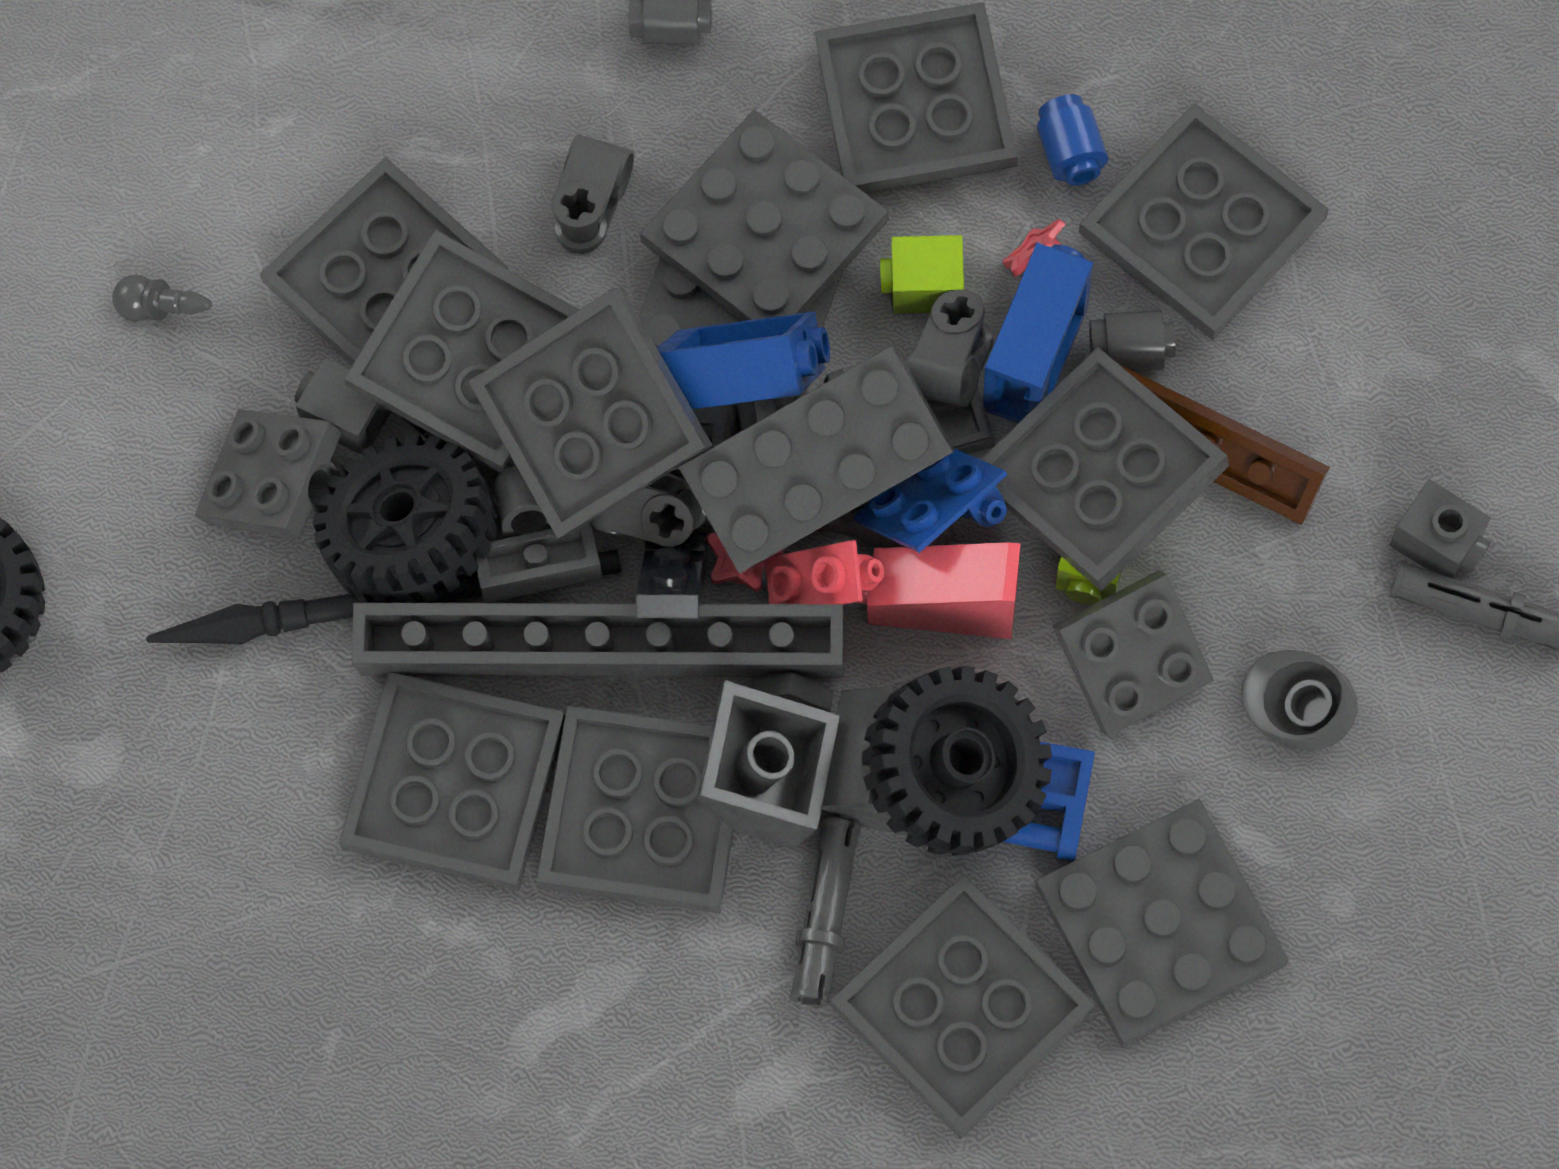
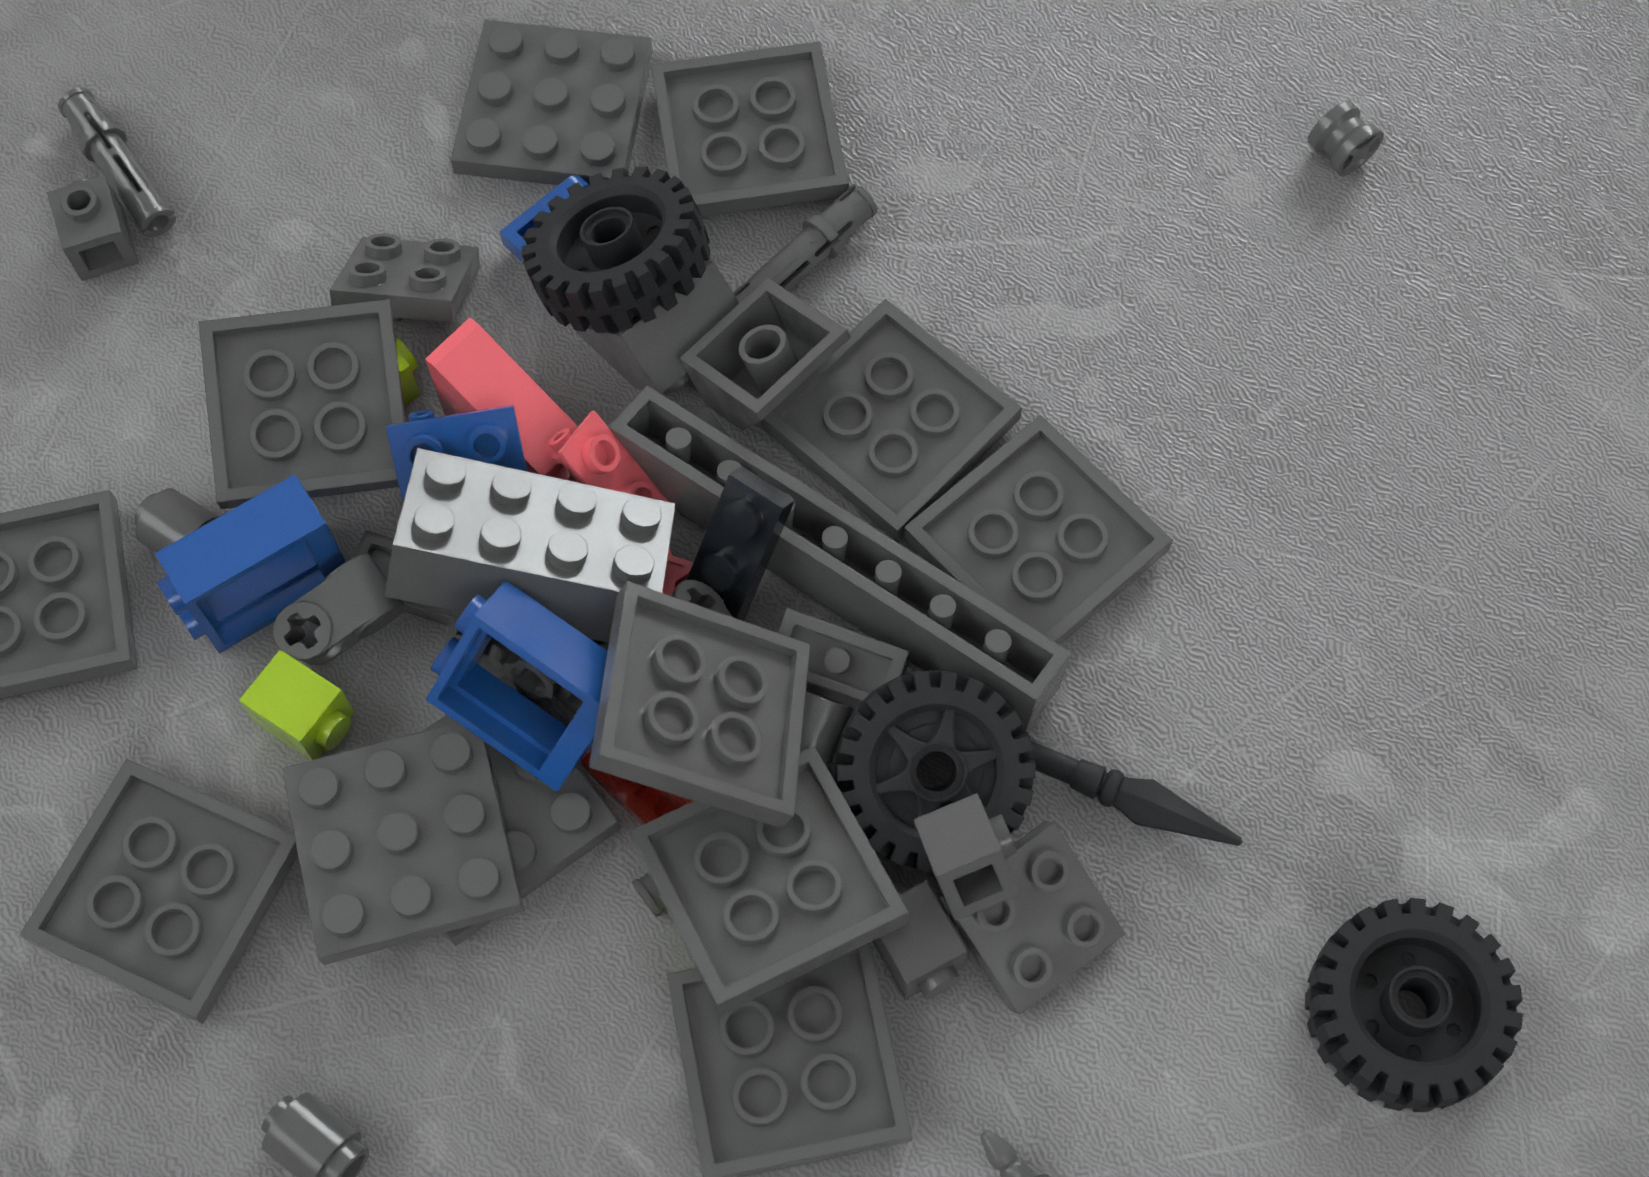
camera: 150 degrees left, 5 degrees down
(330, 449) = (968, 855): none -> dark grey brick
(589, 192) = (525, 1008): dark grey piece -> none
(1020, 257) = (188, 650): coral plate -> none
(1071, 140) = (67, 746): blue brick -> none
(1258, 464) = (174, 359): reddish brown plate -> none
(1299, 700) = (313, 178): dark grey hat -> none

